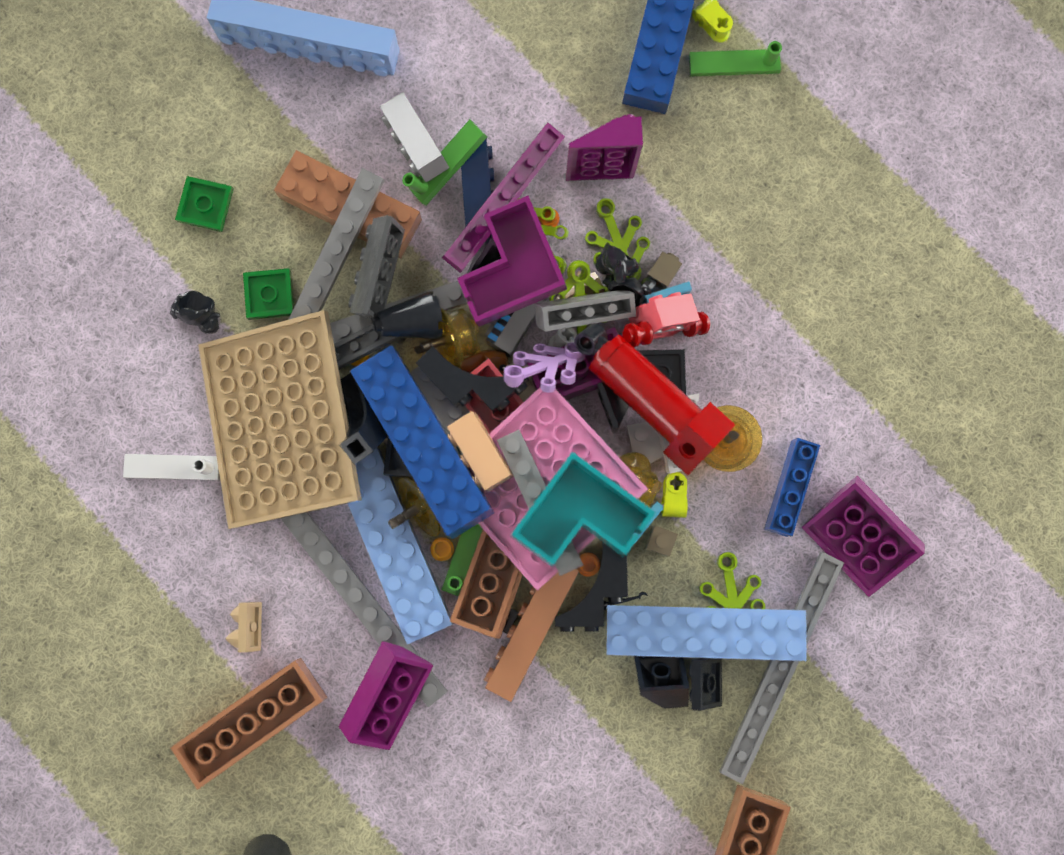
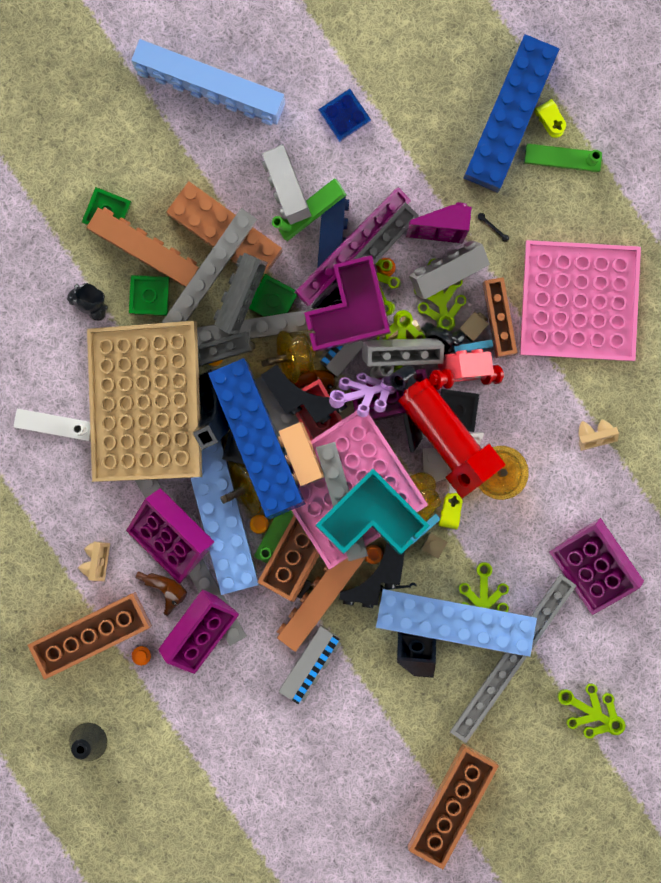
camera: 10 degrees right, 5 degrees up
(250, 236) = (142, 247): none -> nougat brick
(319, 737) = (141, 655): none -> orange plate
(332, 579) = (169, 535): none -> magenta slope
(347, 649) = (172, 590): none -> reddish brown animal
(411, 318) = (263, 338): black cone -> none
(417, 273) = (272, 297): none -> green plate
(471, 52) = (344, 115): none -> clear blue plate
(531, 715) = (309, 664): none -> light grey brick
(546, 172) = (388, 233): none -> dark grey piece
(616, 262) = (435, 316): black hair -> none
(623, 207) = (449, 269): none -> light grey brick
(651, 145) = (481, 216): none -> black hinge
(693, 254) = (499, 317): none -> nougat brick
(706, 683) = (450, 662): black plate -> none
(785, 222) = (580, 300): none -> bright pink plate
(792, 487) = (546, 519): blue brick -> none
(843, 376) = (589, 438): none -> tan tile
(894, 719) = (594, 713): none -> lime plant

